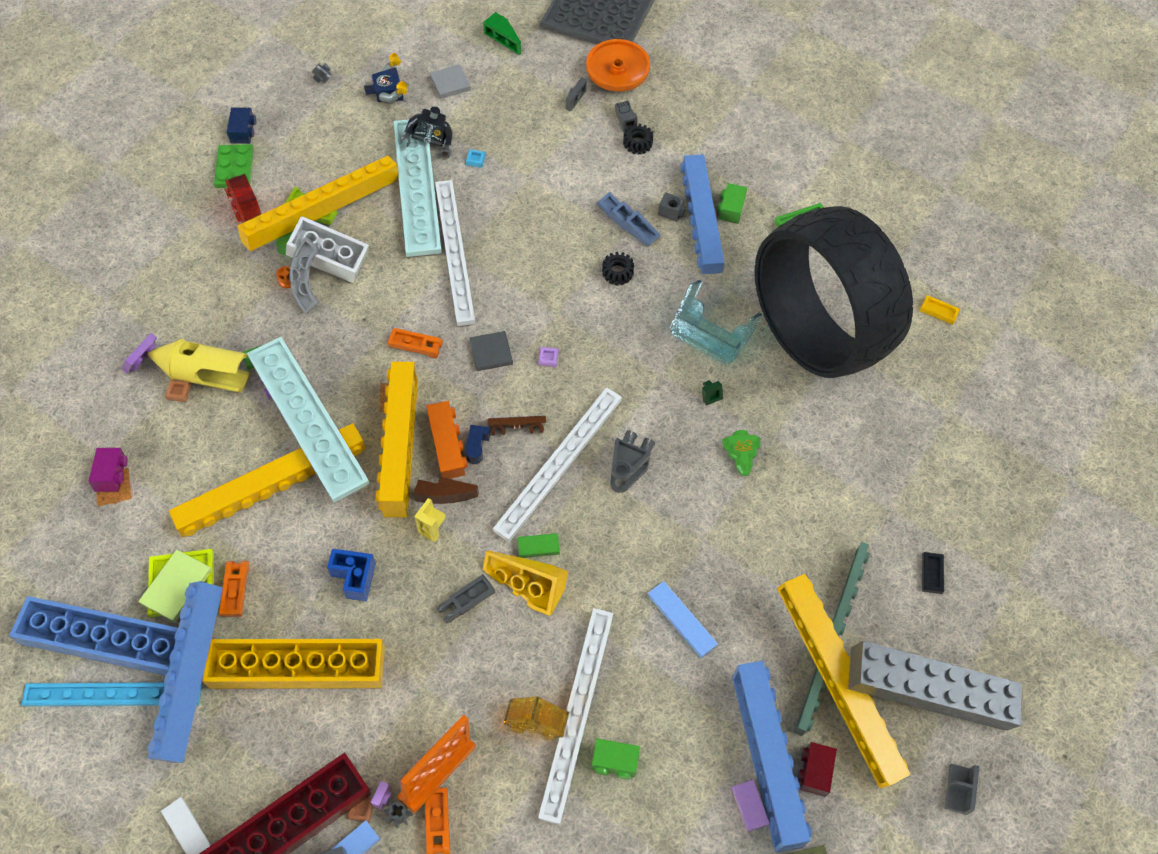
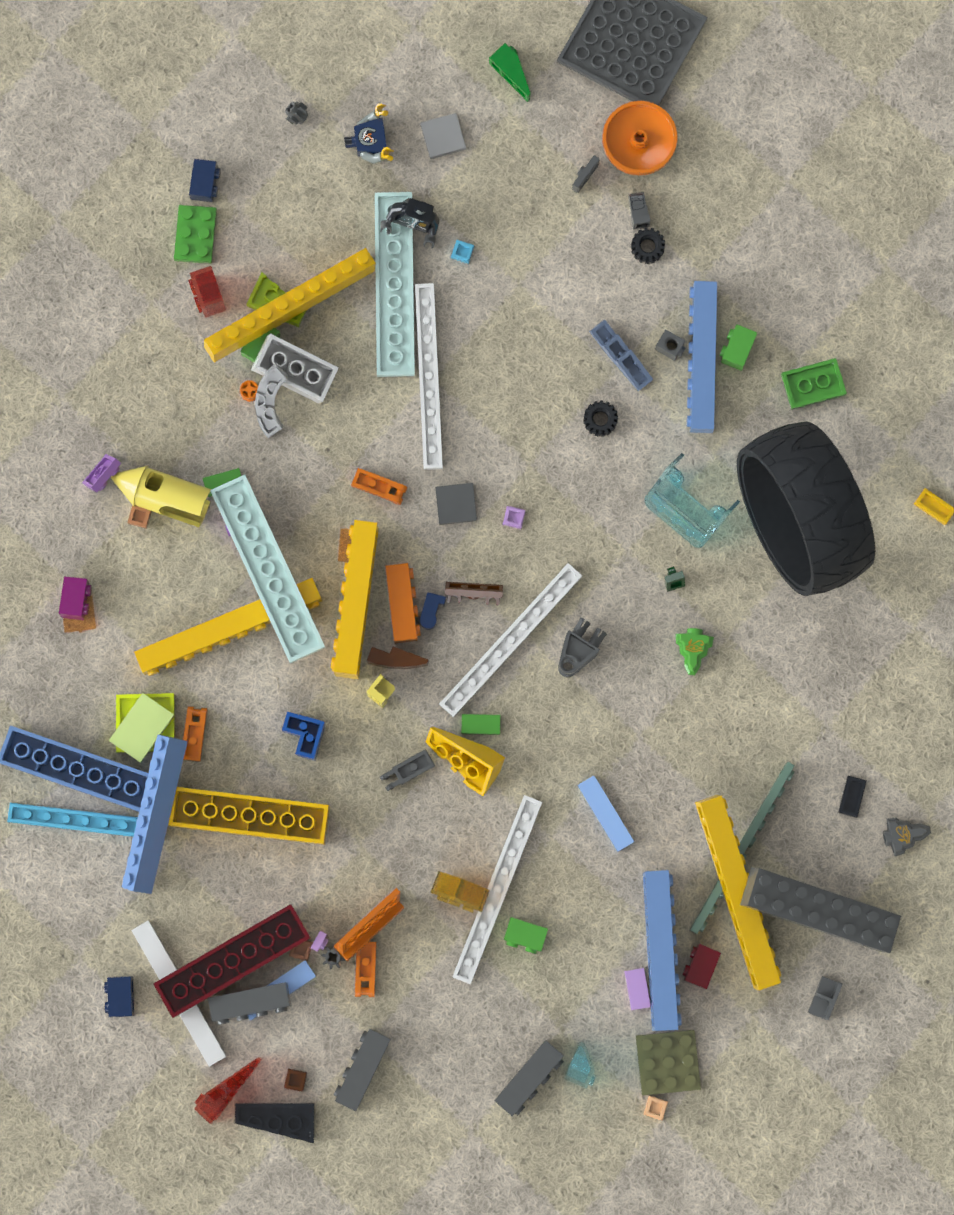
camera: 10 degrees right, 20 degrees up
(995, 604) = (903, 834): none -> dark grey rock

